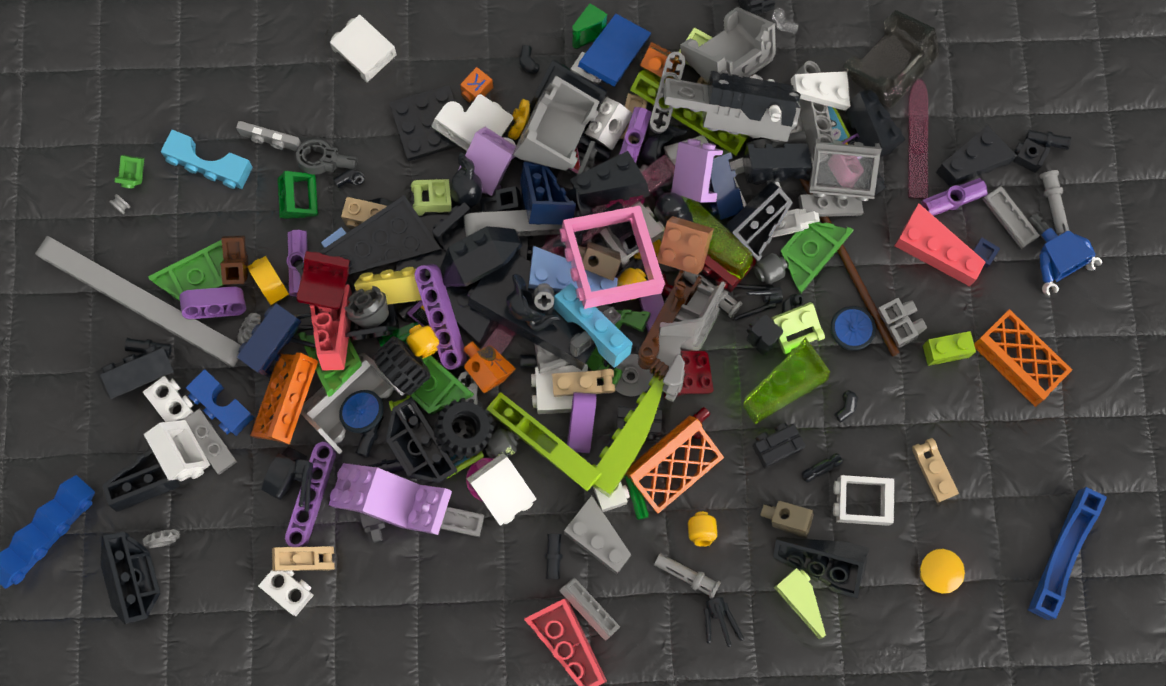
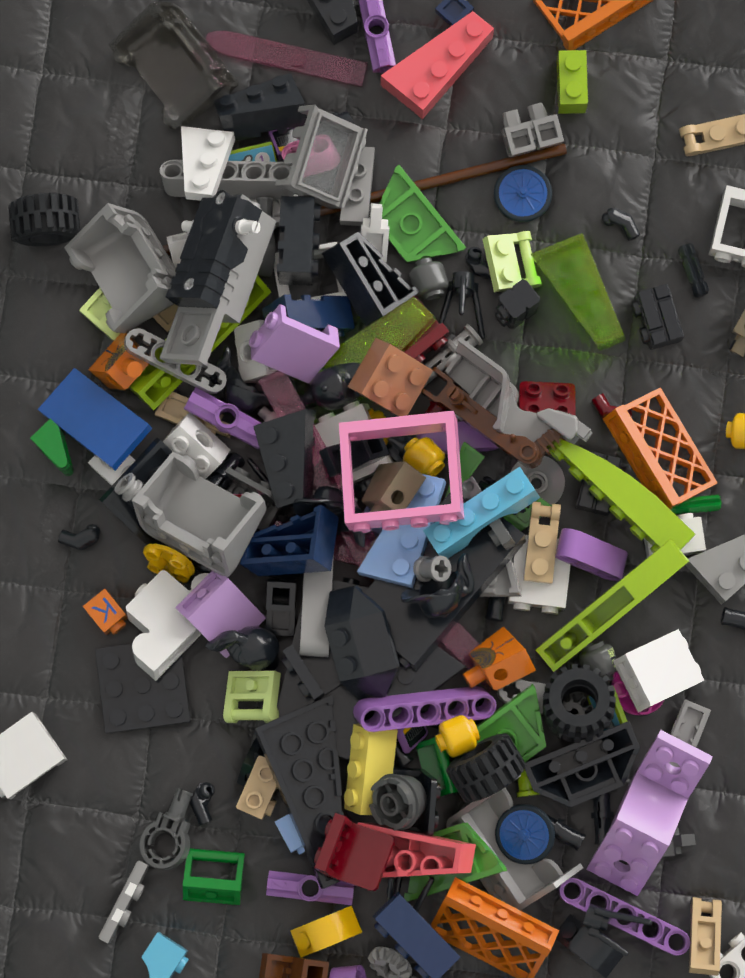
camera: 75 degrees left, 5 degrees up
(566, 74) = (128, 487): none -> light grey bush
(781, 22) = (94, 194): clear arm -> none

